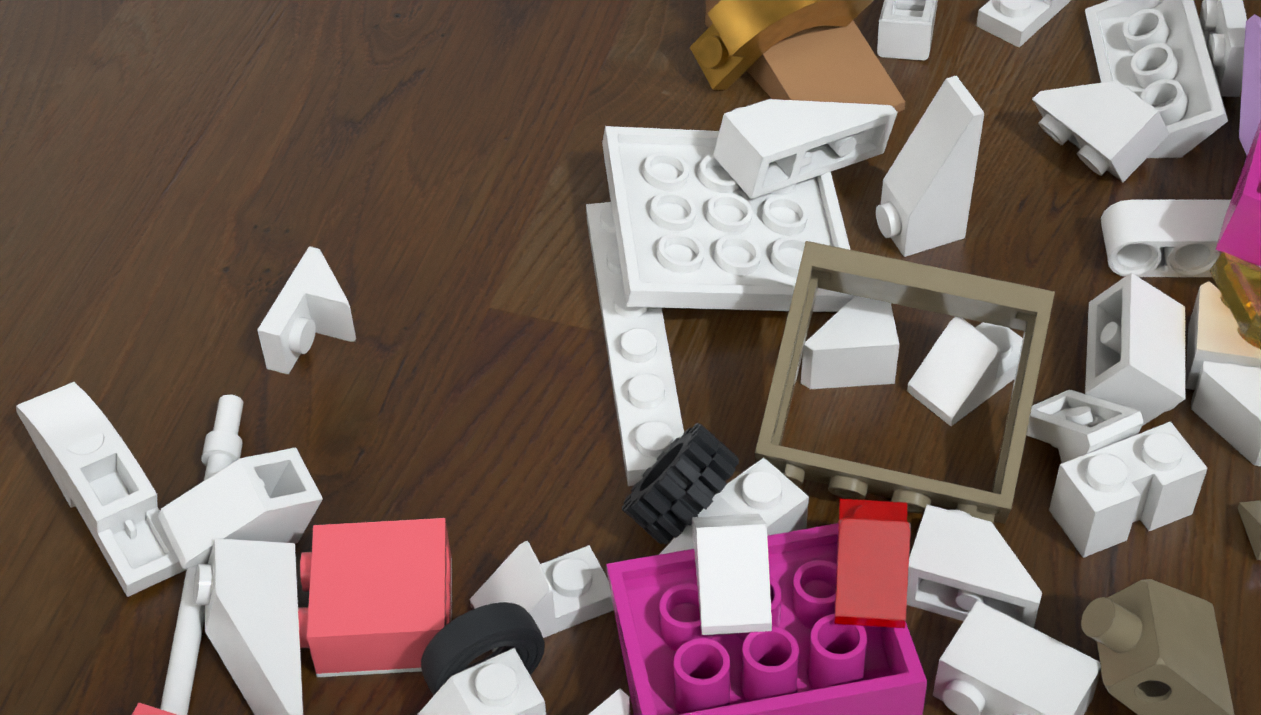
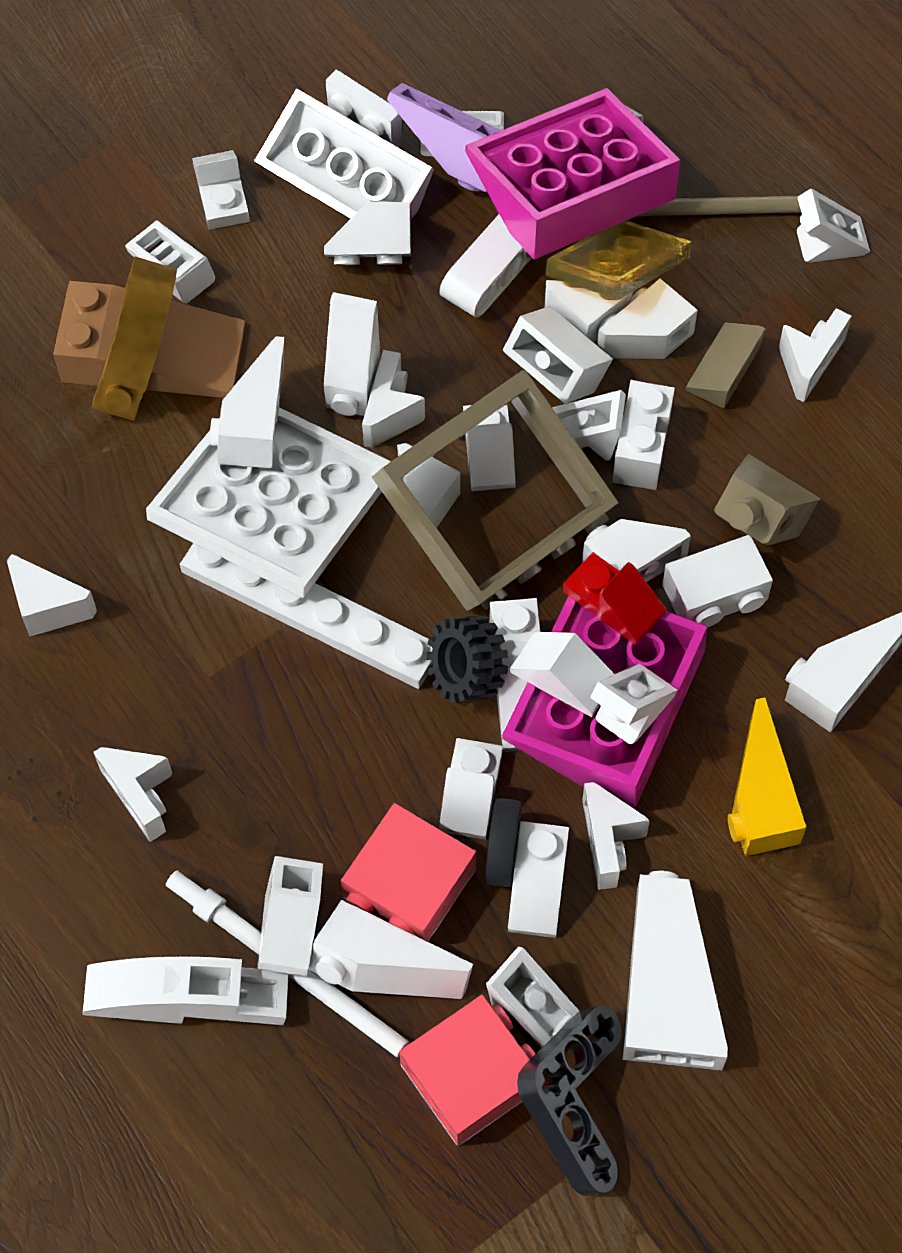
camera: 55 degrees left, 15 degrees up
(451, 131) = (48, 599): none -> white slope
(745, 646) = (631, 701): none -> white slope
(934, 240) = (389, 408): none -> white slope

